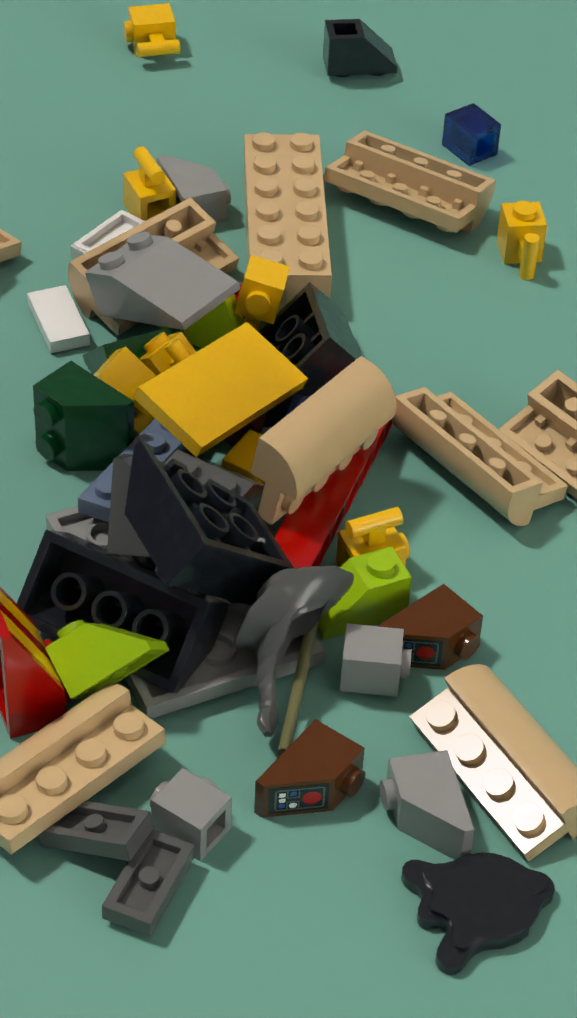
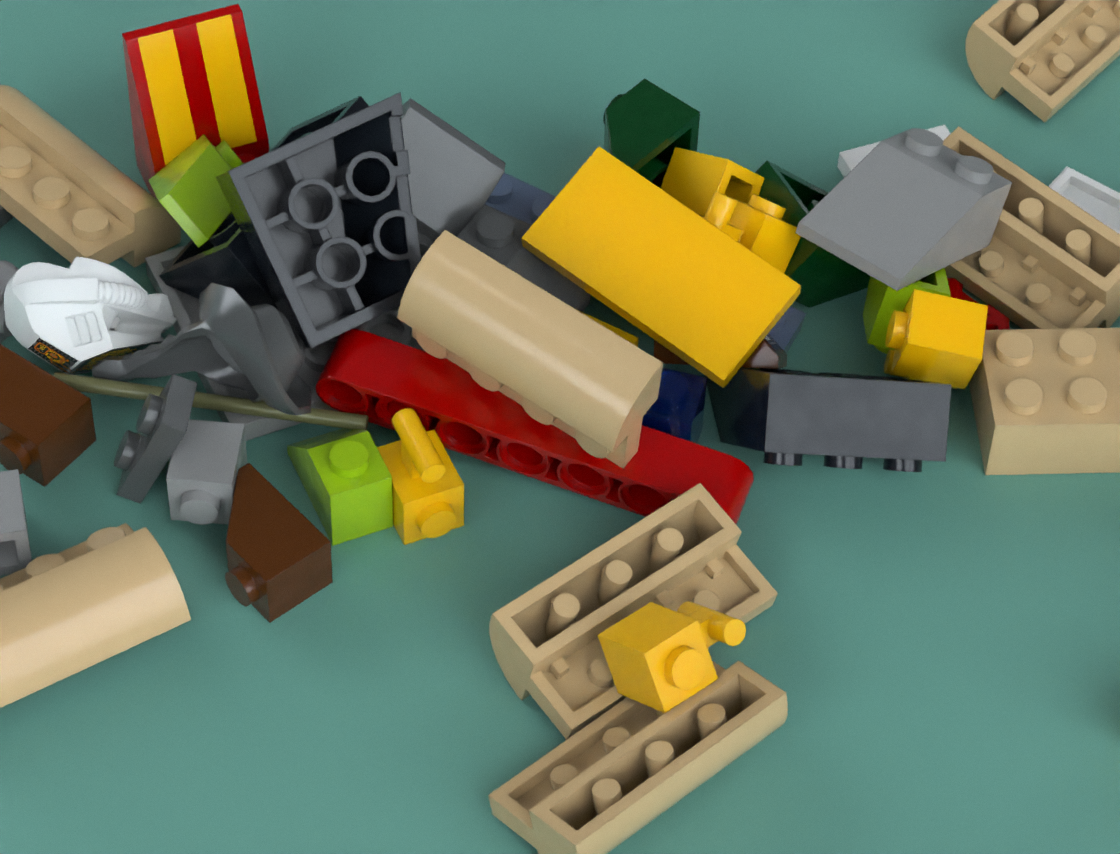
camera: 90 degrees right, 5 degrees up
(229, 729) = (82, 313): none -> white helmet
(354, 679) = (159, 431): none -> dark grey plate
(530, 417) = (664, 653): none -> yellow brick

